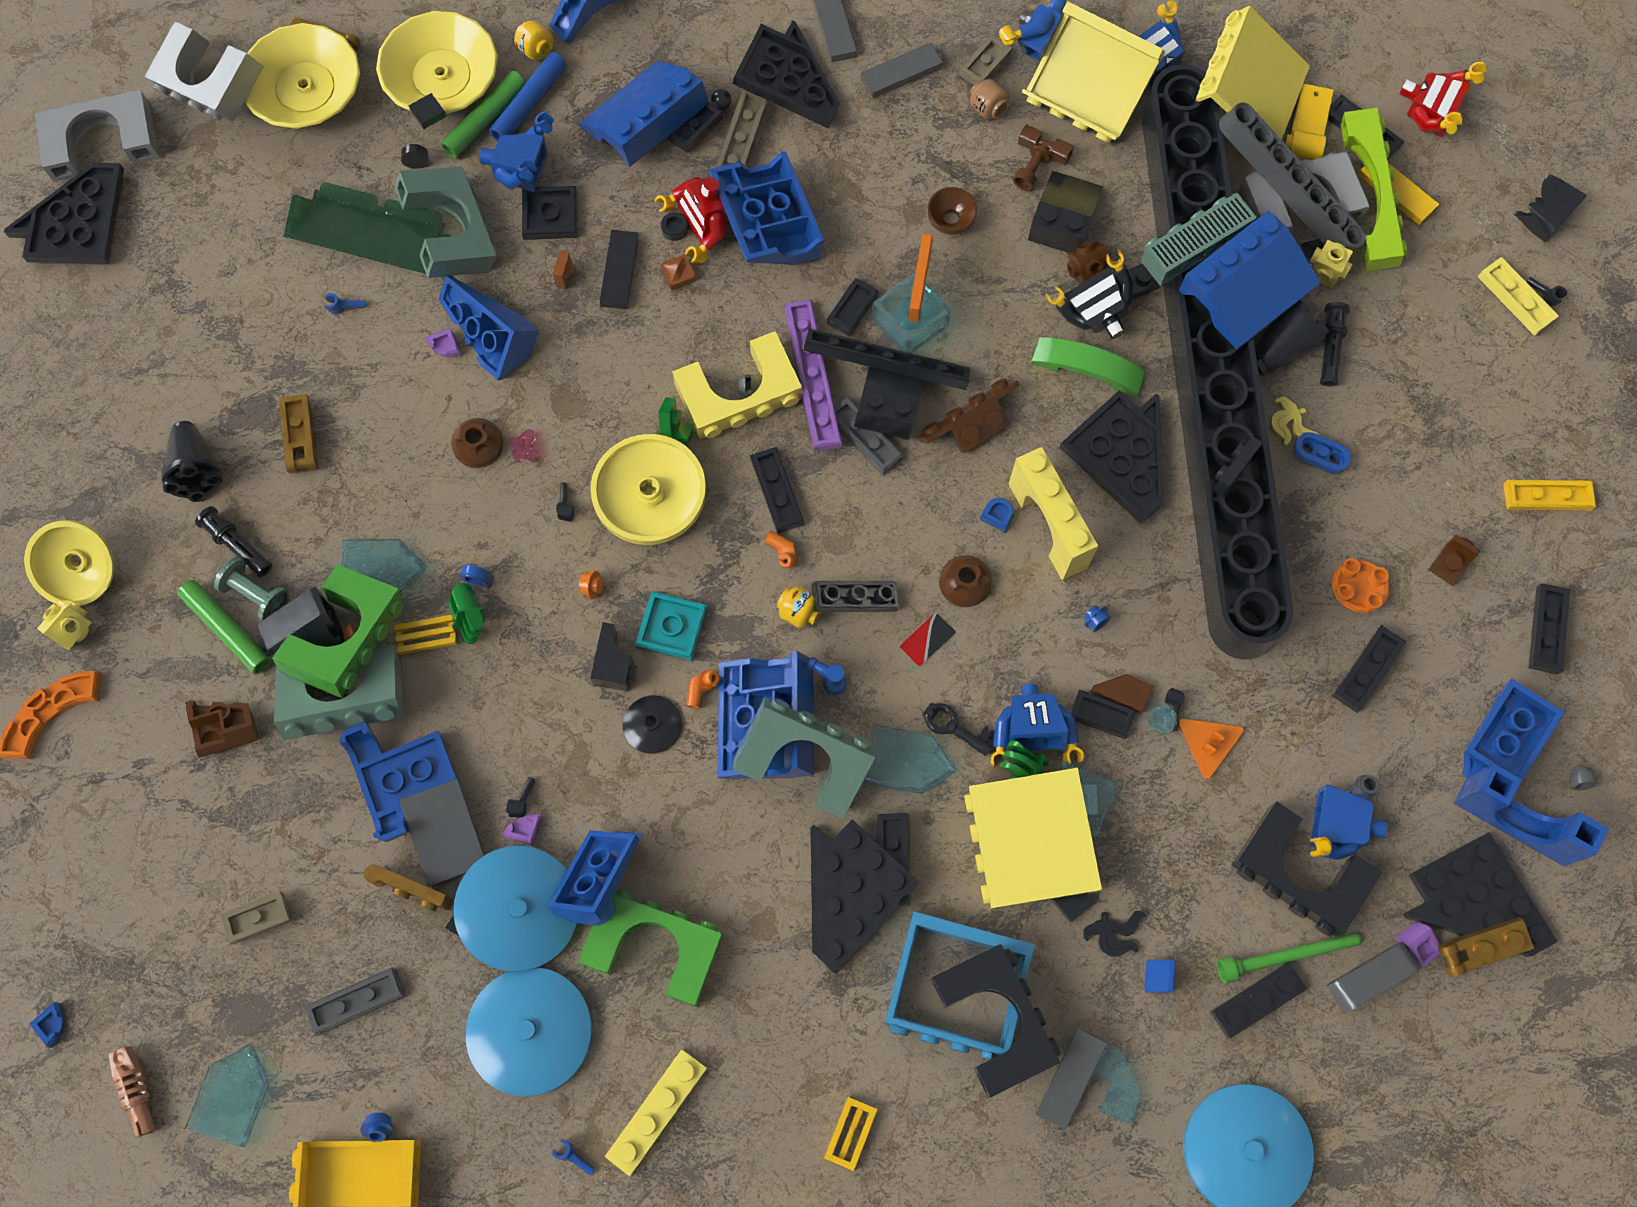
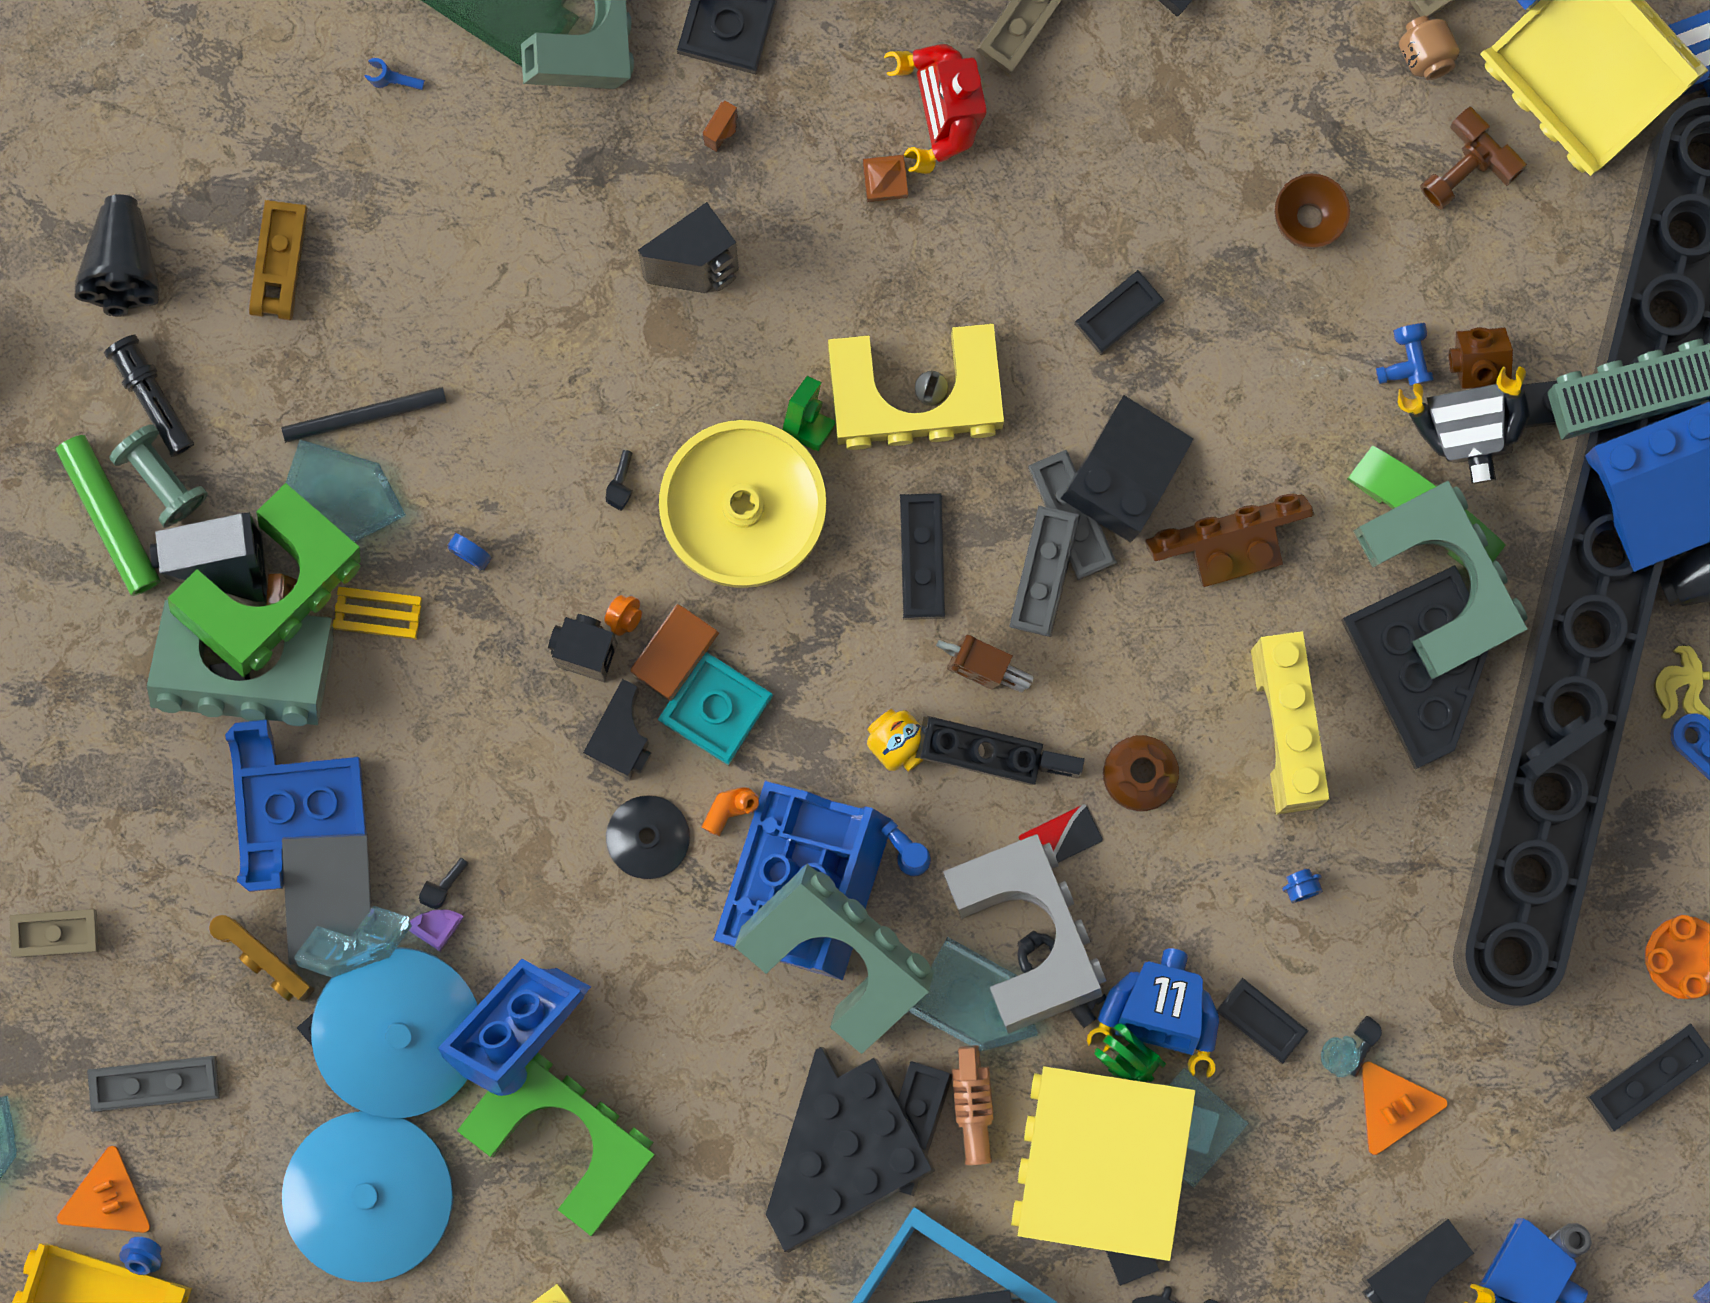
camera: 15 degrees right, 10 degrees up
(220, 726) = (68, 654): reddish brown slope -> none
(342, 1095) = (106, 1198): none -> orange piece
(381, 512) = (364, 414): none -> black bar
(444, 343) = (519, 184): medium lavender tile -> none
(456, 865) = (337, 953): none -> clear light blue tile
(466, 612) = (442, 602): green arm -> none
(480, 453) = (530, 371): reddish brown piece -> none
(495, 331) = (596, 190): blue wedge -> none
(523, 447) = (587, 379): clear pink piece -> none
(566, 342) = (691, 254): none -> black slope
(570, 610) = (583, 647): none -> black brick
(619, 269) = (801, 147): black tile -> none
(632, 597) = (674, 652): none -> dark orange slope
(674, 226) = (901, 103): black tile -> none
(769, 212) = (1041, 134): blue piece -> none
(785, 547) = (907, 648): orange arm -> none
(813, 379) = (1027, 401): medium lavender tile -> none
(840, 540) = (984, 664): none -> reddish brown piece
(859, 473) = (1044, 571): none -> dark grey tile
(887, 359) = (1139, 415): black tile -> none
(892, 315) = (1196, 356): clear light blue brick -> none
(912, 589) = (1061, 764): none -> black tile
(914, 666) = (1026, 874): none -> light grey arch
(920, 278) = (1223, 317): orange tile -> none
(930, 830) = (973, 1104): none -> nougat hinge
(998, 513) = (1220, 690): blue tile -> none
(1040, 266) = (1415, 368): none -> blue piece
(1064, 212) = (1480, 261): black slope -> none
(1103, 361) = (1440, 520): none -> sand green arch
(1125, 691) = (1305, 1000): reddish brown tile -> none

